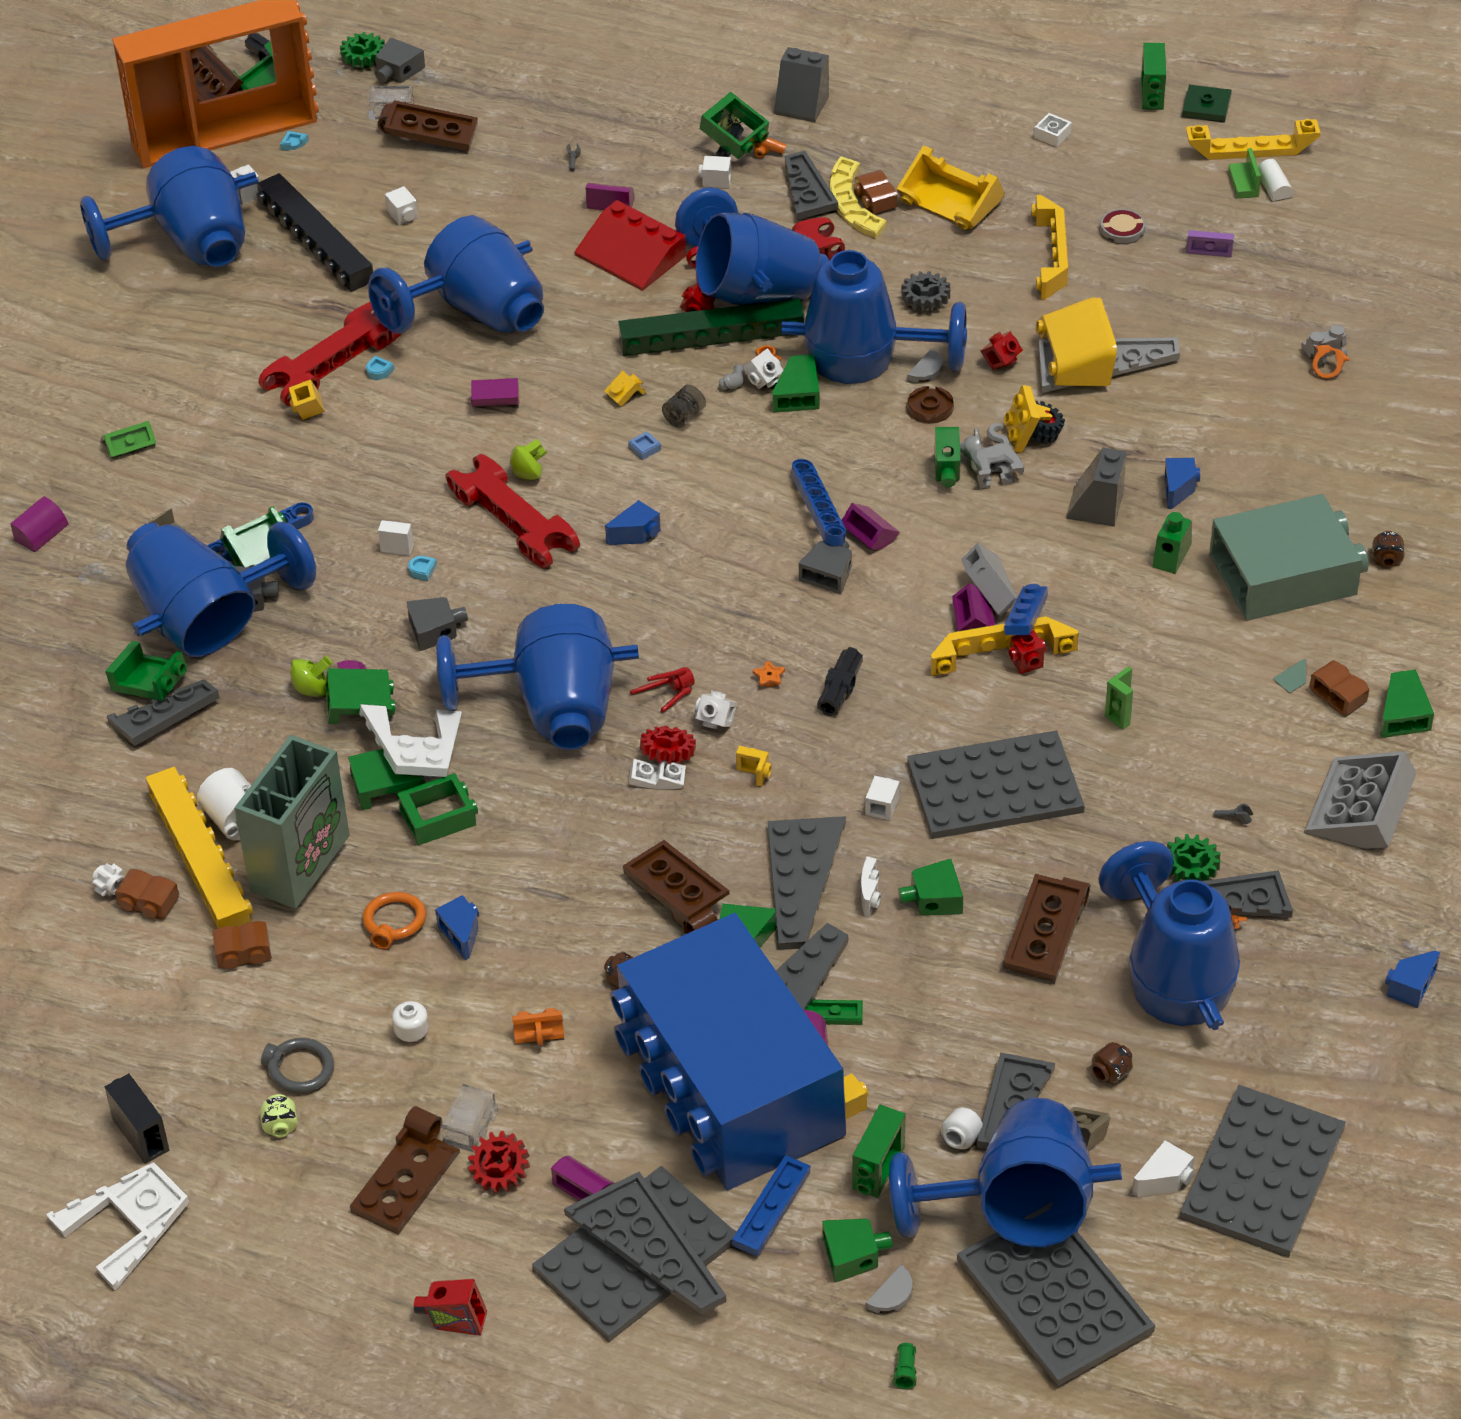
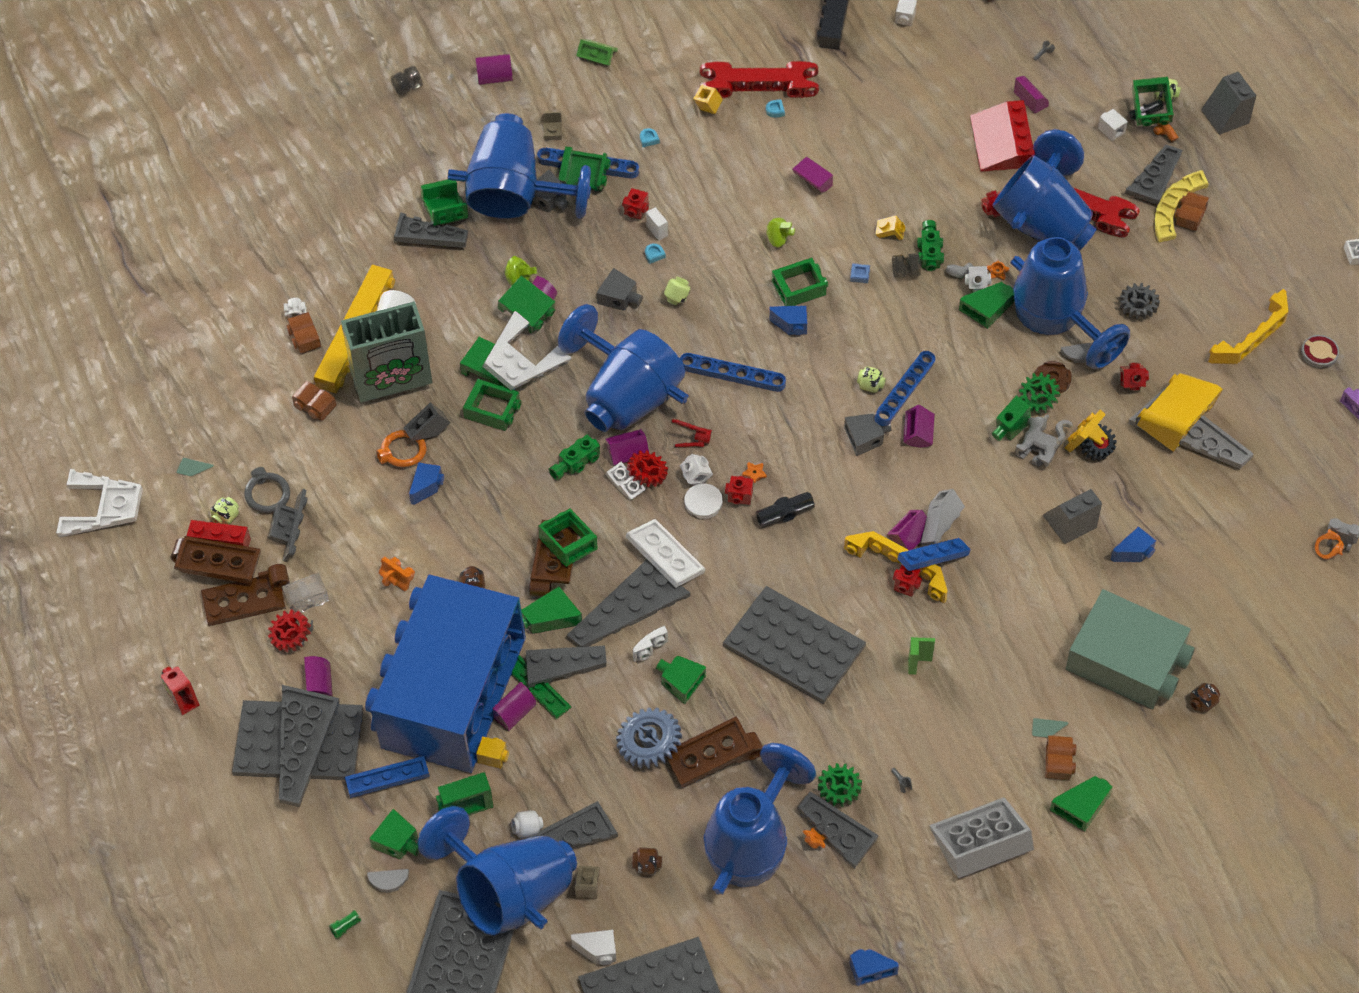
camera: 45 degrees right, 10 degrees up
(137, 1118) = (156, 454): black brick -> none
(182, 1109) = (192, 467): none -> sand green sticker
(283, 476) = (649, 137): none -> medium azure tile
(290, 1178) = (188, 547): none -> reddish brown hinge
(306, 1142) = (219, 532): none -> red brick
(352, 535) = (636, 203): none -> red brick
(366, 1073) = (285, 524): none -> dark grey bracket
(394, 871) = (427, 423): none -> dark grey slope
(410, 1021) = (338, 515): white head -> none
(474, 272) = (883, 88): blue piece -> none
(494, 578) = (677, 290): none -> yellowish green head
(534, 531) = (735, 282): red piece -> none
(582, 790) = (576, 457): none -> green brick
(605, 509) = (802, 295): none -> green window
(620, 743) = (624, 445): none -> magenta brick
(654, 597) = (733, 369): none -> blue beam
(680, 373) = (930, 246): none -> green brick
(682, 838) = (577, 549): none -> green window
(707, 327) = (975, 221): dark green brick -> none
(753, 731) = (703, 501): none -> white tile
(754, 762) = (681, 516): yellow bracket -> none
(774, 520) = (871, 379): none -> yellowish green head
(779, 801) = (665, 553): none -> white tile
(780, 695) = (740, 490): none -> red brick
(882, 798) = (721, 598): white brick -> none
(943, 410) = (1043, 385): none -> green gear
(949, 190) = (1236, 243): yellow windscreen -> none
(978, 975) = (652, 749): none -> sand blue gear
(1178, 533) = (1075, 584): green torso -> none

